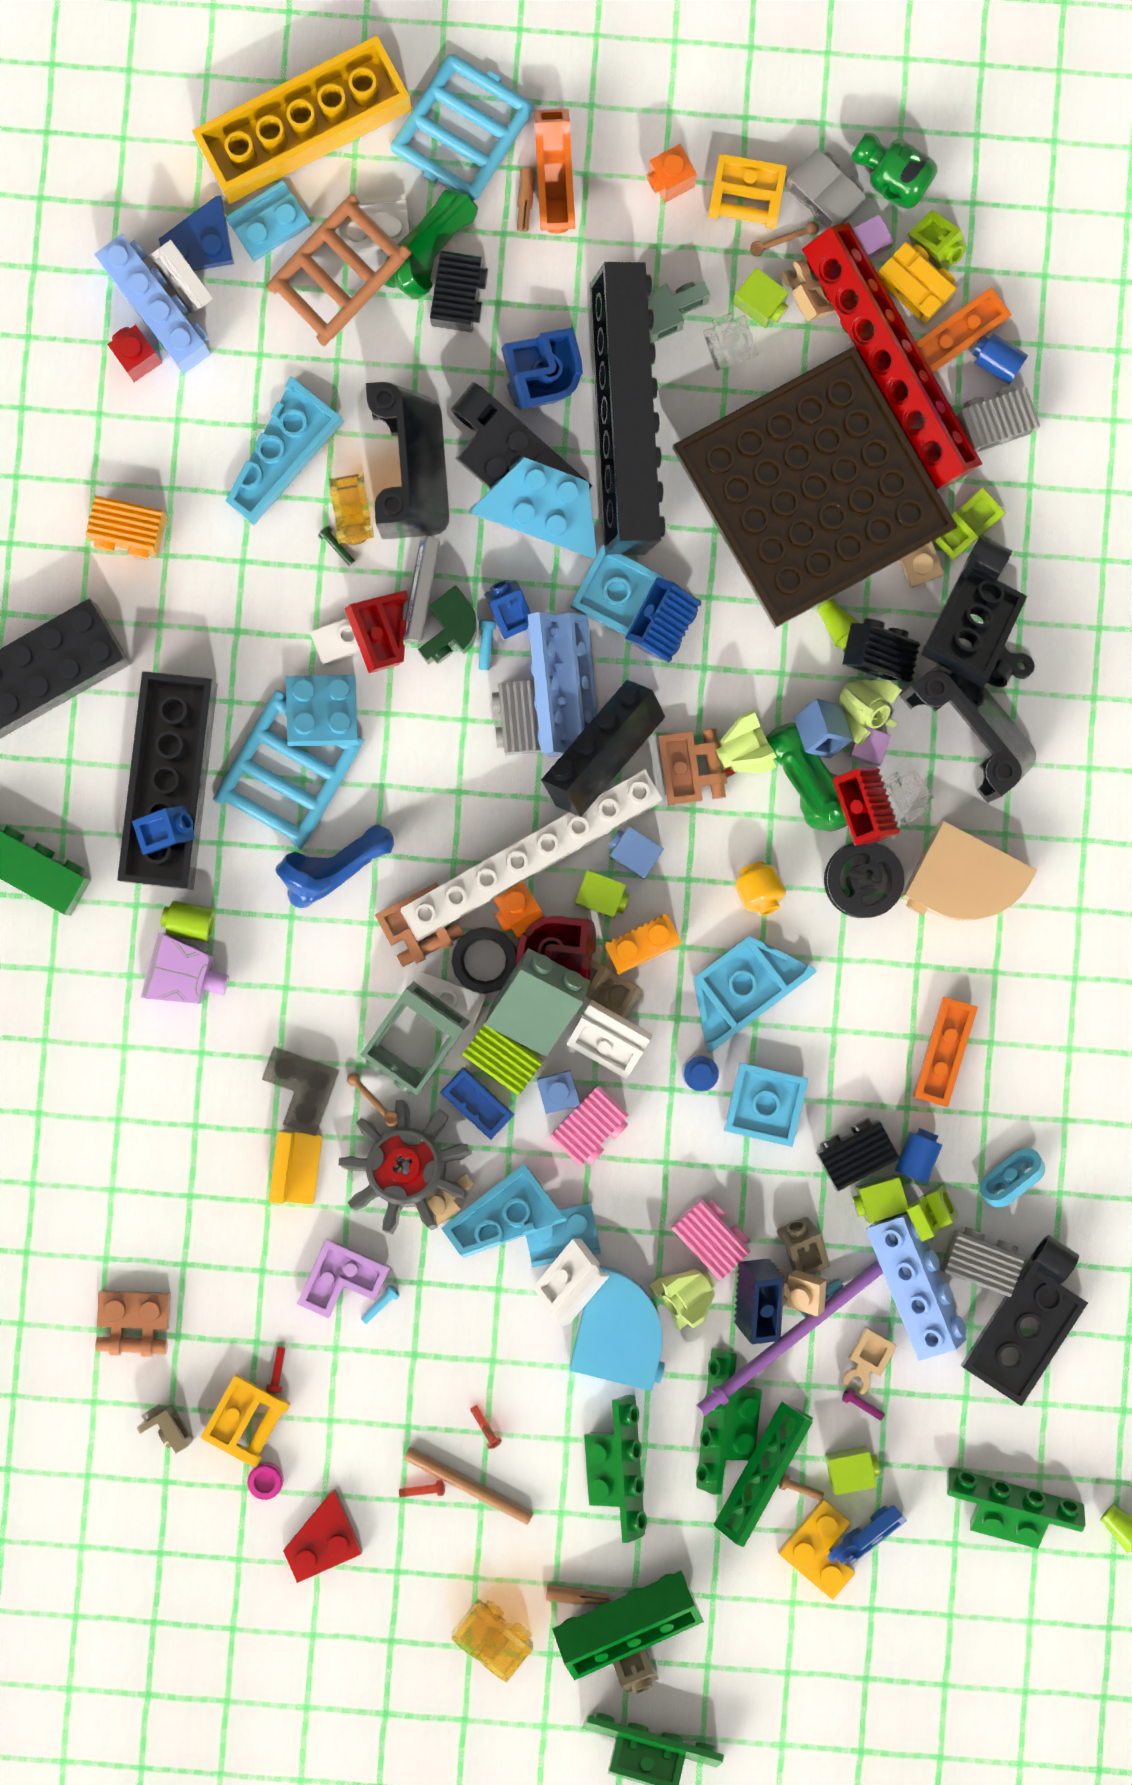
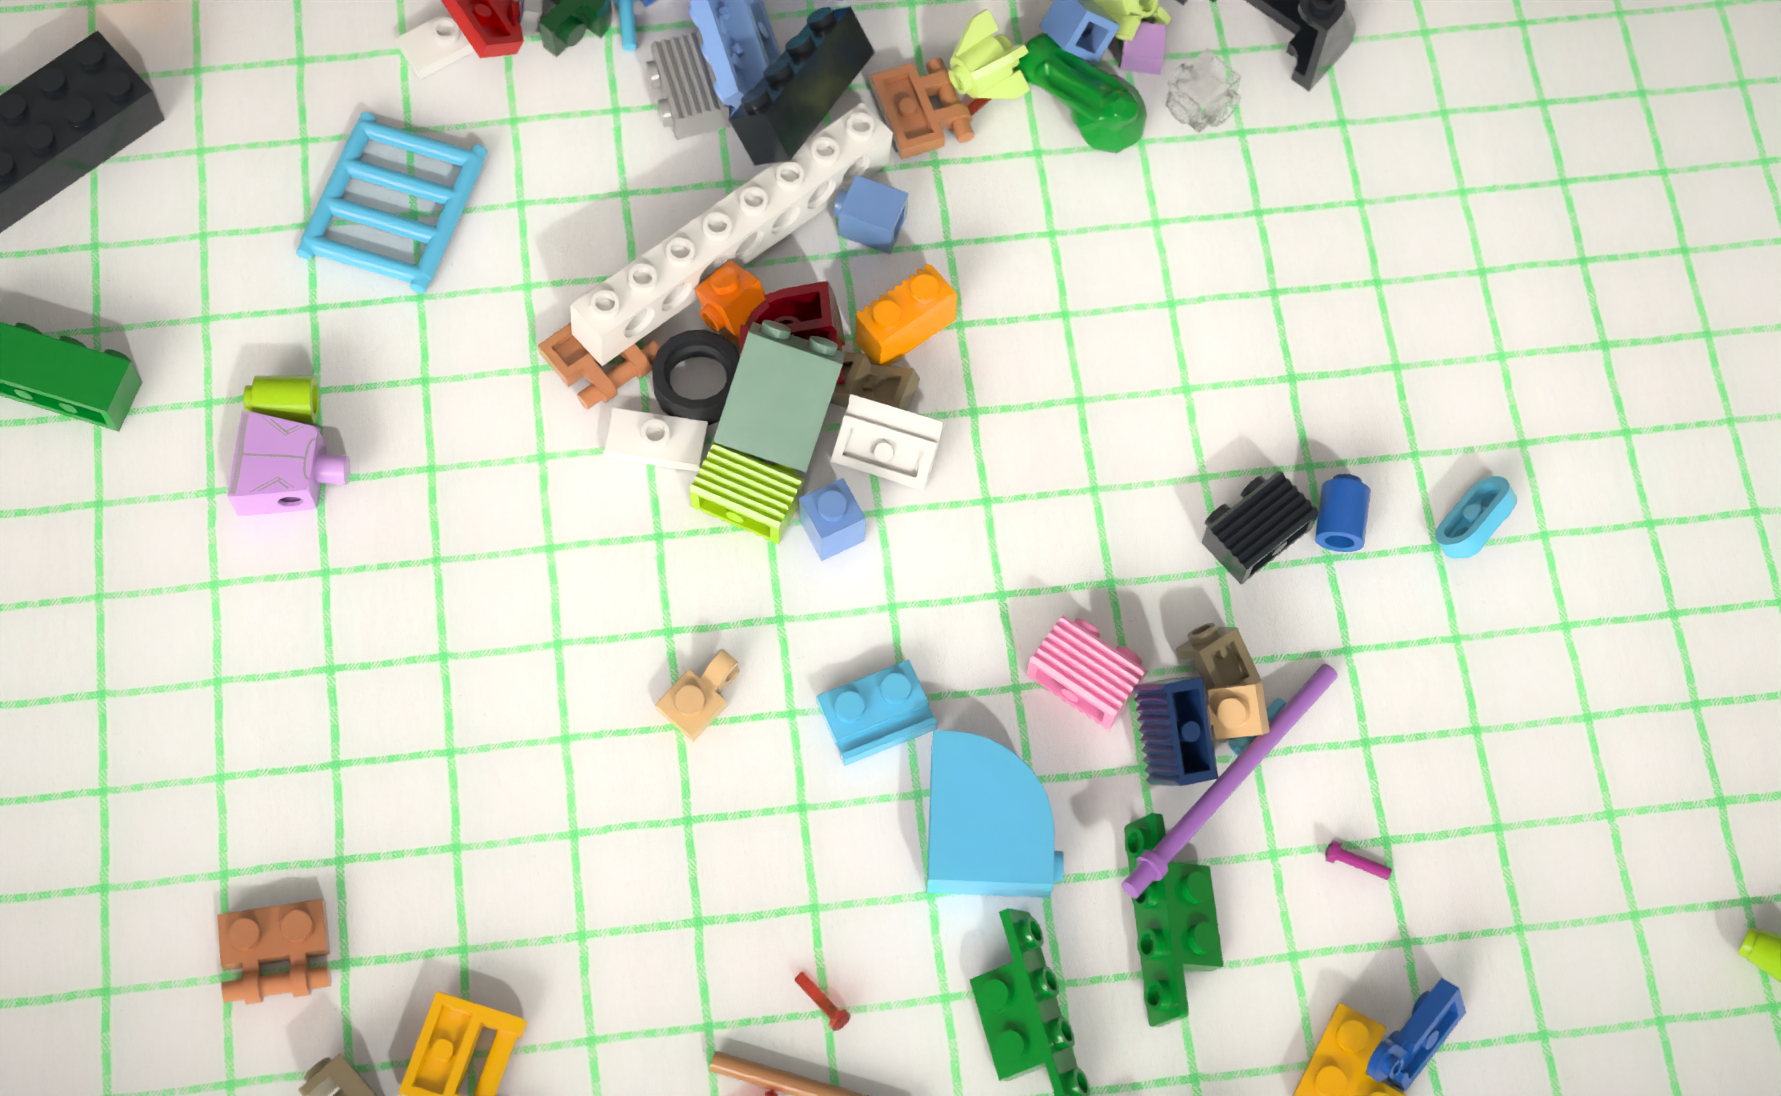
camera: 15 degrees left, 20 degrees down
(163, 829) = (229, 264): blue bracket -> none
(168, 772) = (230, 232): black brick -> none
(277, 1369) = (499, 999): red piece -> none
(295, 1167) = (481, 692): yellow panel -> none
(311, 1085) = (484, 575): clear smoke plate -> none
(316, 877) = (444, 321): blue hair -> none
(321, 710) = (425, 120): medium azure plate -> none
(340, 1268) = (563, 816): lavender plate -> none
(385, 1167) = (638, 653): dark grey gear -> none
(390, 1117) = (605, 590): medium nougat hinge -> none
(392, 1293) = (649, 838): medium azure piece -> none
(433, 1011) = (599, 428): sand green window -> none
(477, 1103) = (723, 559): blue plate -> none
(503, 1214) = (789, 693): medium azure wing -> none
(570, 1281) = (903, 759): white plate -> none
(589, 1126) = (884, 557): bright pink brick -> none
(602, 895) = (842, 265): lime brick -> none
(686, 1296) = (1069, 751): yellowish green brick -> none
(700, 1073) = (1020, 460): blue brick -> none
(743, 987) = (1052, 350): medium azure wing -> none
(760, 888) = (1045, 226): yellow head -> none
(763, 1473) = (1241, 975): green fence -> none
(765, 1104) = (1119, 488): medium azure plate -> none
(798, 1487) = (1277, 991): medium nougat piece -> none
(852, 905) = (1183, 171): black wheel -> none
(852, 1470) = (1367, 949): lime brick -> none
(865, 805) = (1157, 87): red brick -> none
(870, 1355) = (1351, 788): tan plate -> none
(880, 1199) = (1307, 576): lime brick -> none
(917, 1287) = (1387, 672): light blue brick -> none
(932, 1212) = (1382, 572): lime slope -> none
(945, 1051) = (1340, 381): orange plate -> none
(965, 877) = (1308, 170): tan brick -> none
(982, 1262) = (1469, 632): light grey brick -> none
(1013, 1510) = (1612, 967): green bracket -> none
(1035, 1295) = (1561, 665): black hinge -> none

